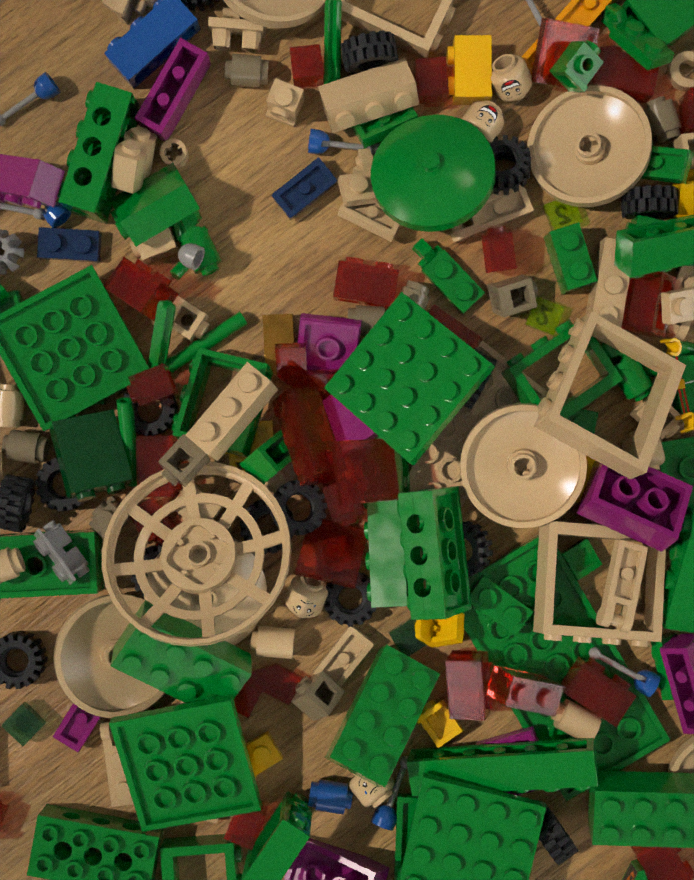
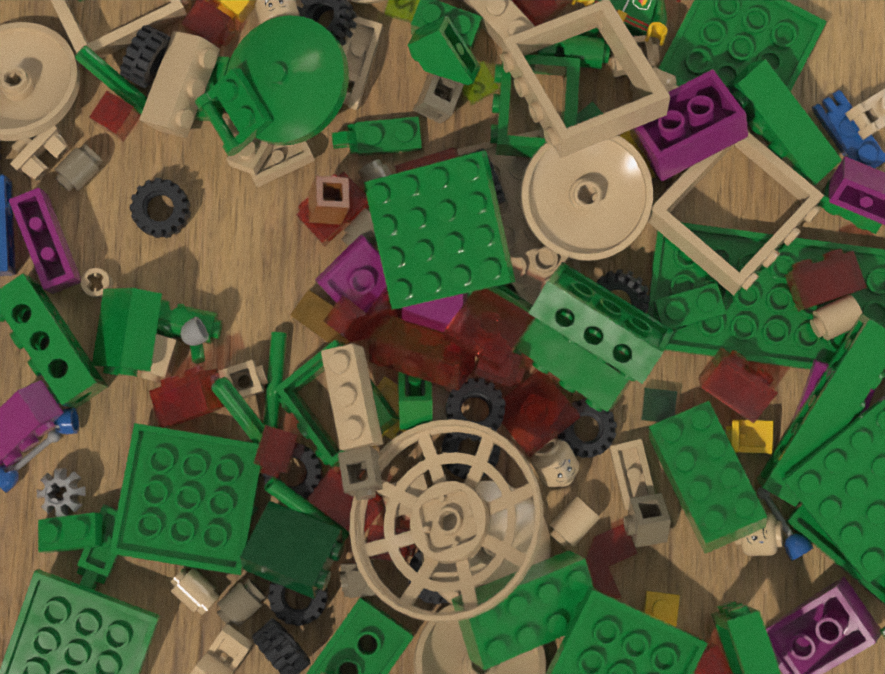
camera: 55 degrees left, 5 degrees down
(65, 563) = (339, 638): light grey hinge -> none
(69, 244) = (100, 431): dark blue plate -> none
(133, 159) = (76, 318): tan brick -> none
(254, 140) = (143, 197): none -> black tyre
(284, 102) = (129, 157): tan brick -> none
(304, 188) = (213, 198): dark blue plate -> none
(320, 142) = (185, 154): hinge -> none
(330, 796) = (743, 579): blue brick -> none
(366, 276) = (328, 200): none -> dark orange brick
(386, 154) = (241, 106): none -> green plate
(440, 631) = (671, 371): yellow bracket -> none
(499, 249) = (392, 76): clear red brick -> none
(524, 690) = (777, 339): clear red brick -> none
(547, 273) = (443, 52): none -> green slope
(581, 558) = (704, 209): green plate -> none
(622, 585) = (750, 189): tan plate -> none
(644, 681) = (847, 235): hinge -> none

